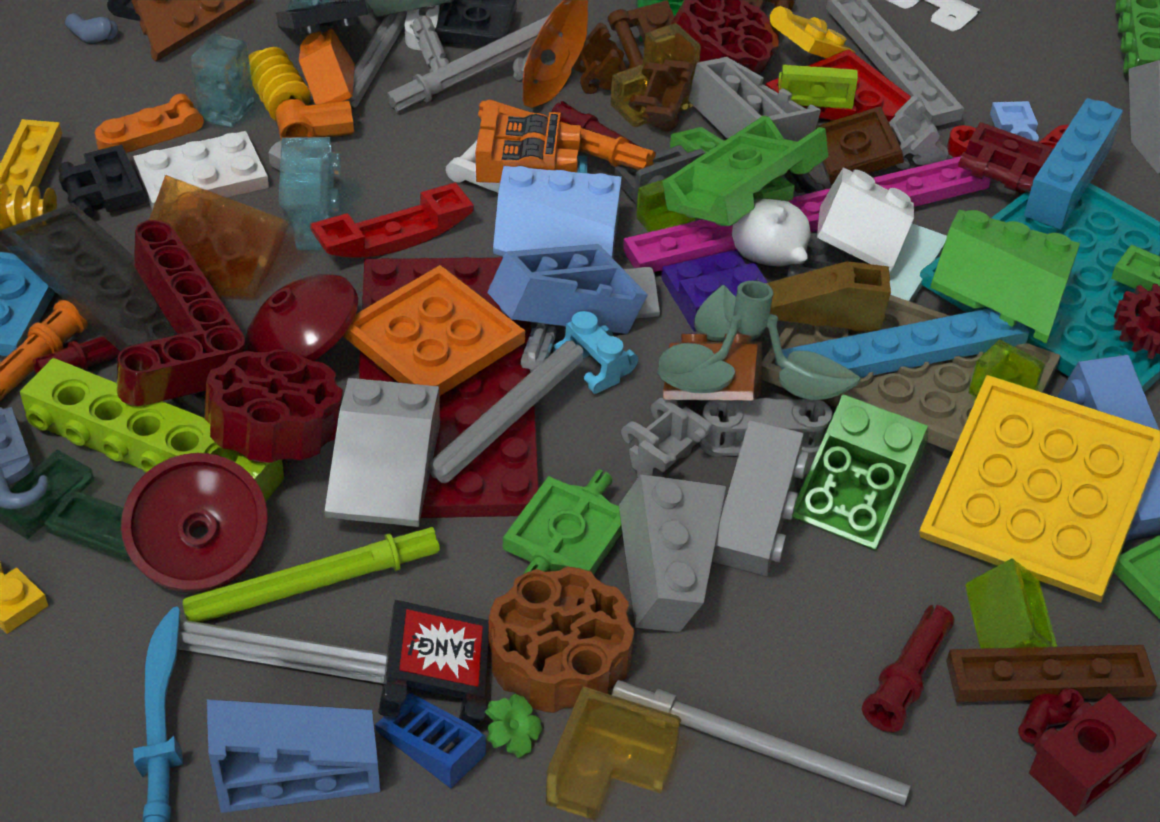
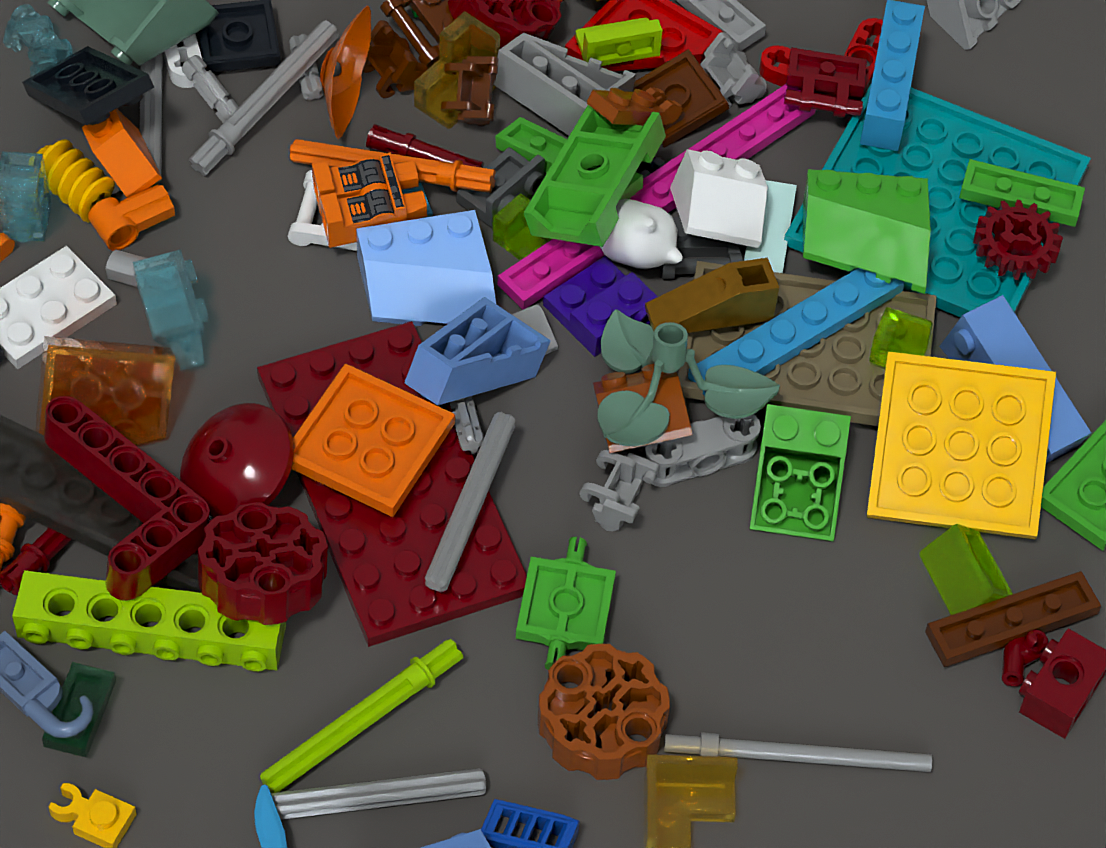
camera: 20 degrees left, 10 degrees up
(89, 523) = (148, 725): clear green plate -> none
(191, 494) = (249, 668): dark red dish -> none
(383, 452) = (381, 580): light grey slope -> none
(397, 231) = (272, 321): red slope -> none
(436, 654) = (505, 758): flag -> none
(513, 724) = (594, 801): bright green plant -> none
(602, 347) = (510, 396): medium azure piece -> none
(669, 547) = (666, 599): light grey wedge -> none
(760, 498) = (726, 527): light grey wedge -> none
(791, 122) = (634, 107): none -> dark orange hinge
(902, 680) = (897, 663): dark red pin -> none
(1015, 118) = (818, 26): light blue plate -> none

